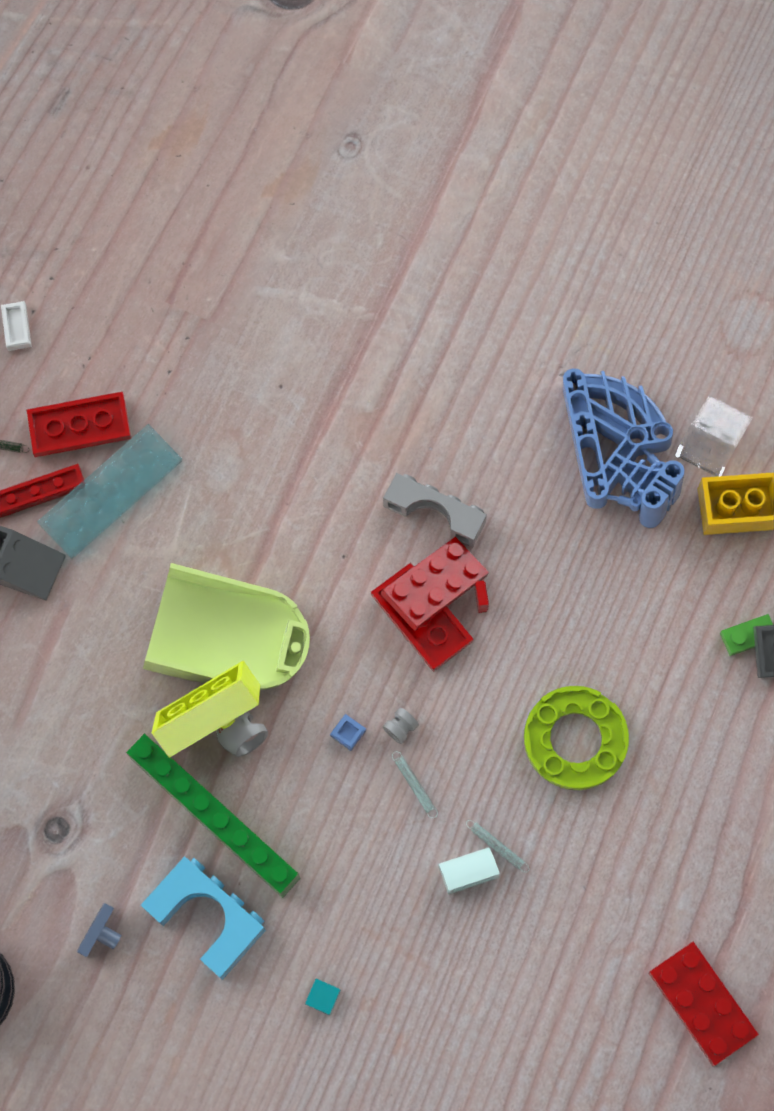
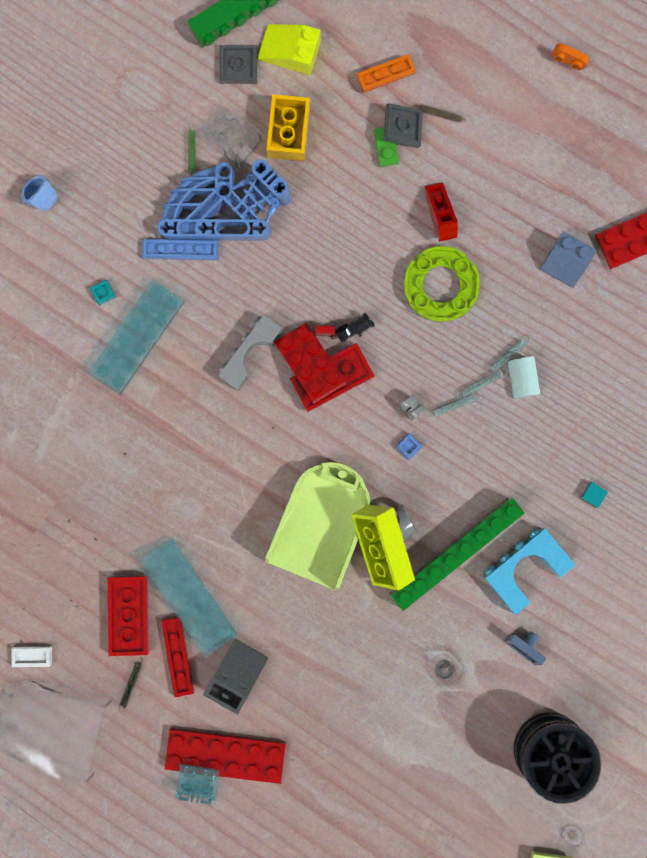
camera: 80 degrees left, 15 degrees up
(429, 372) = (136, 337): none -> clear light blue plate
(448, 813) = (475, 389): none -> light aqua piece
(478, 324) = (102, 292): none -> teal tile
(494, 637) = (348, 330): none -> black connector
(552, 405) = (180, 249): none -> medium blue tile
(584, 229) = (39, 193): none -> light blue helmet
(646, 904) = (568, 259): none -> sand blue slope
(674, 720) = (442, 212): none -> red slope
(685, 397) = (191, 150): none -> bright green piece

